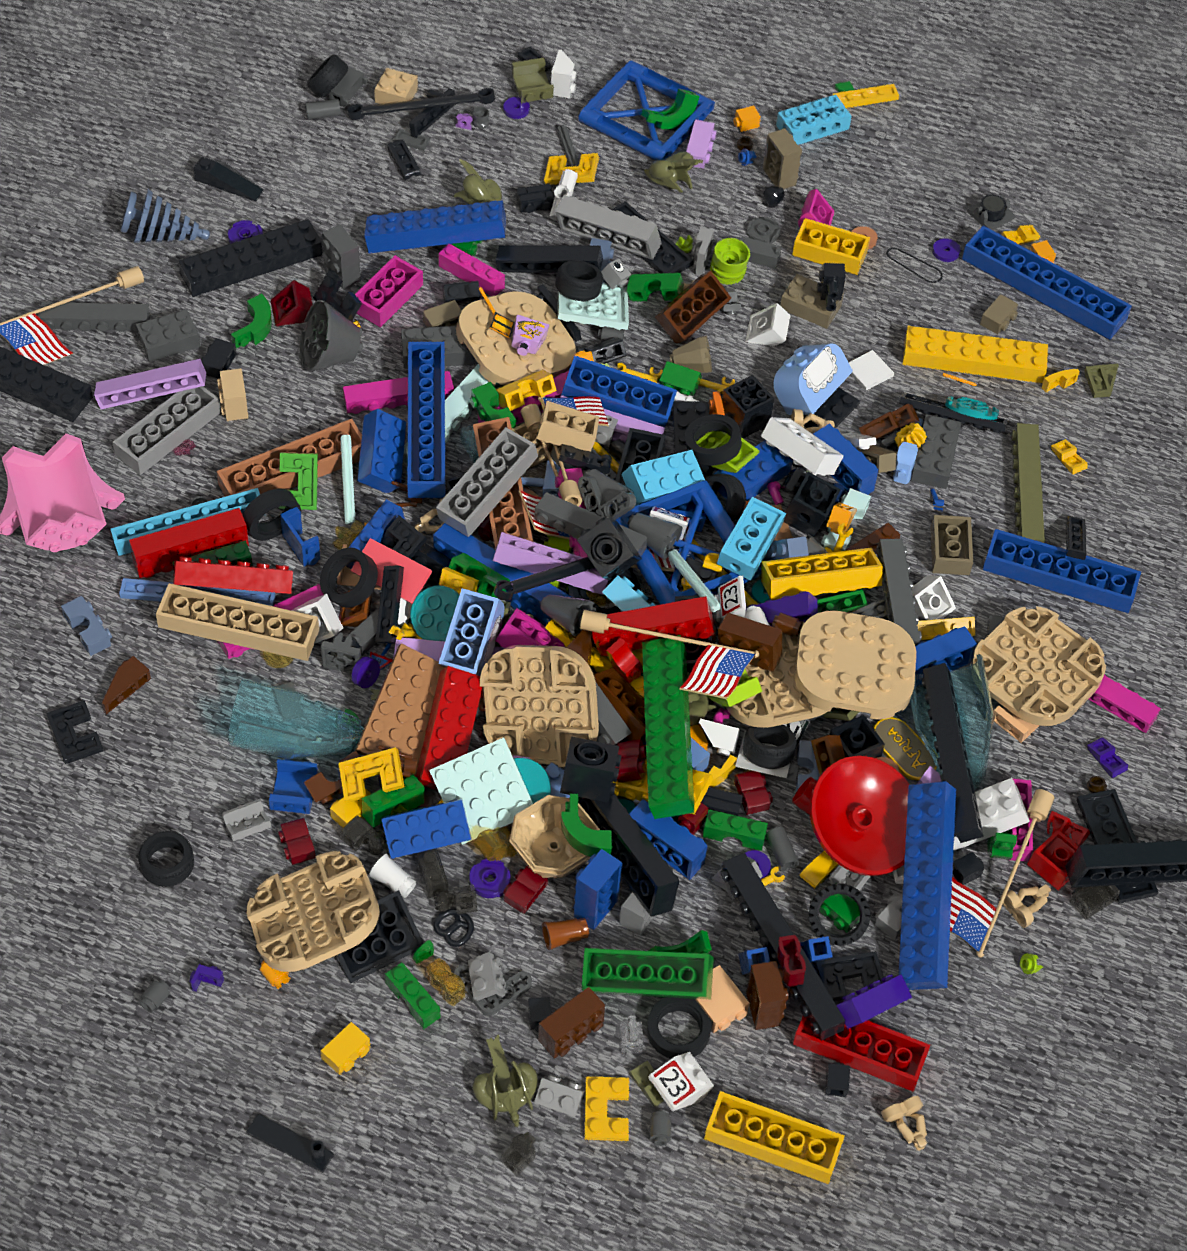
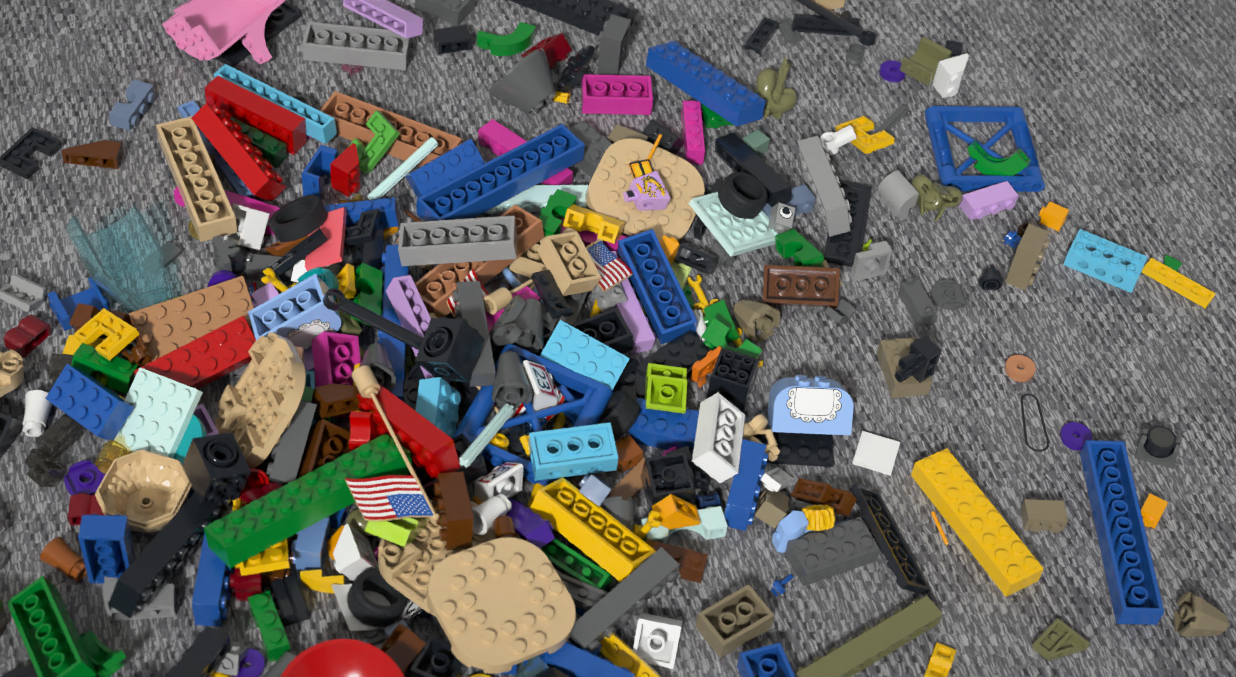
camera: 50 degrees right, 5 degrees down
(232, 394) = (421, 63): tan brick -> none
(262, 505) = (321, 127): black tyre -> none
(316, 516) = (345, 172): none -> red slope
(454, 927) = (19, 484): black piece -> none
(464, 117) = (840, 47): medium lavender plate -> none
(518, 236) = (757, 142): none -> sand green brick
(535, 198) = (807, 127): black brick -> none
(580, 836) = (148, 496): green arch -> none
(653, 190) = (898, 194): none -> light grey brick
(698, 386) = (717, 334): none -> green arch
(711, 423) = (659, 354): black tyre -> none
(730, 260) = (881, 285): lime wheel -> none
(752, 787) = (322, 618): dark red brick -> none
(768, 326) = (845, 354): white slope -> none
(816, 209) = (1002, 317): dark pink brick -> none
(830, 245) = (978, 347): yellow brick -> none
(972, 408) = (906, 550): teal tile -> none
(1023, 234) = (1161, 485): yellow slope -> none
(1062, 378) = (1026, 609): yellow slope -> none
(1142, 290) = (1201, 616): none -> dark tan cone

